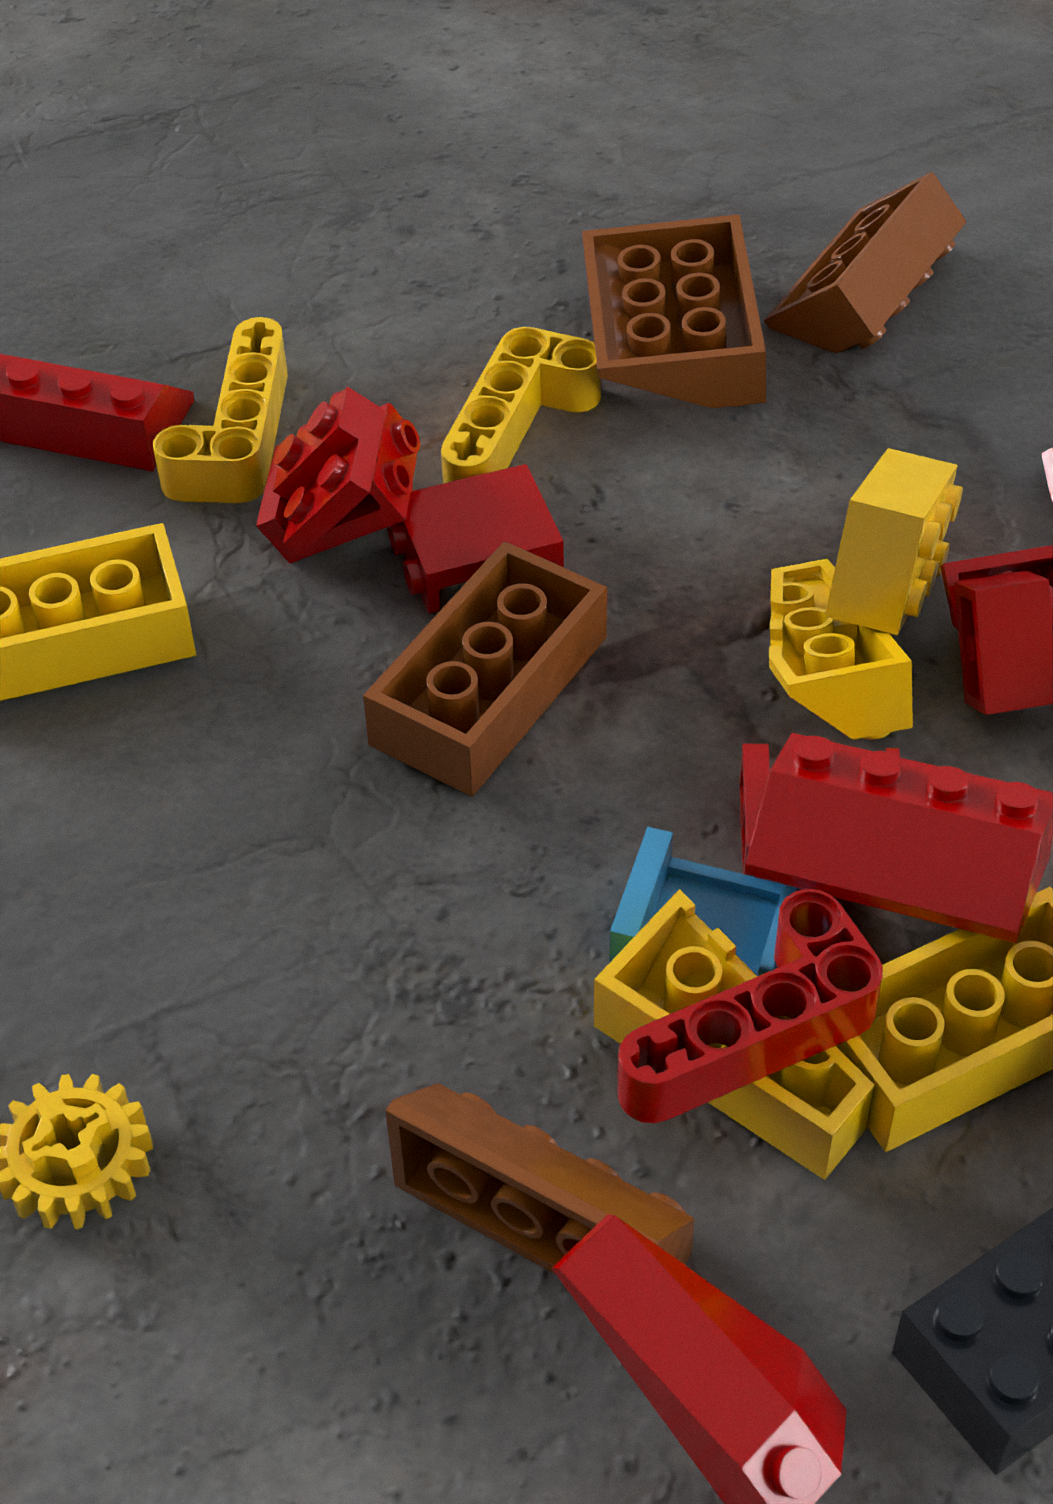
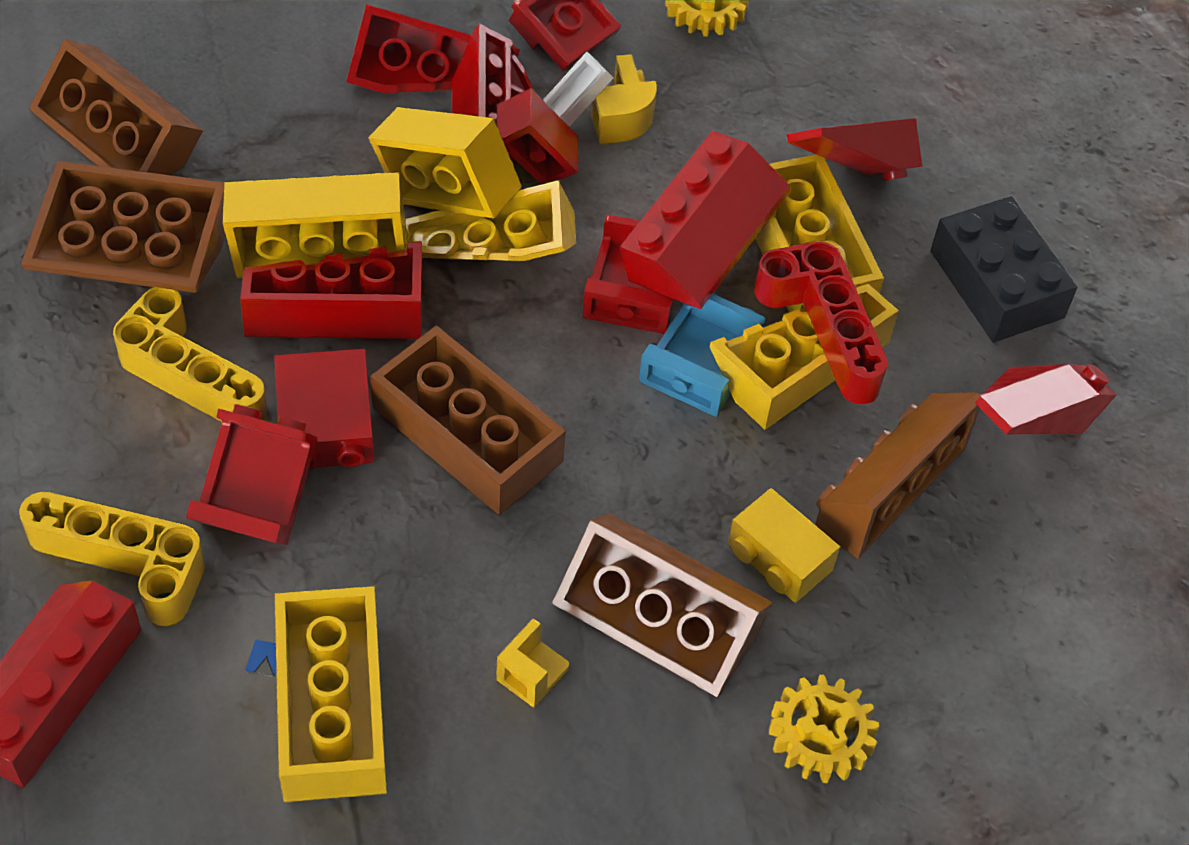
camera: 85 degrees left, 5 degrees up
(137, 807) = (530, 666): none -> yellow panel
(255, 934) = (661, 603): none -> dark orange slope
(327, 466) = (264, 467): red plate -> none
(377, 1052) = (782, 545): none -> yellow brick
(655, 521) = (336, 297): none -> red wedge
(748, 456) = (312, 218): none -> yellow brick

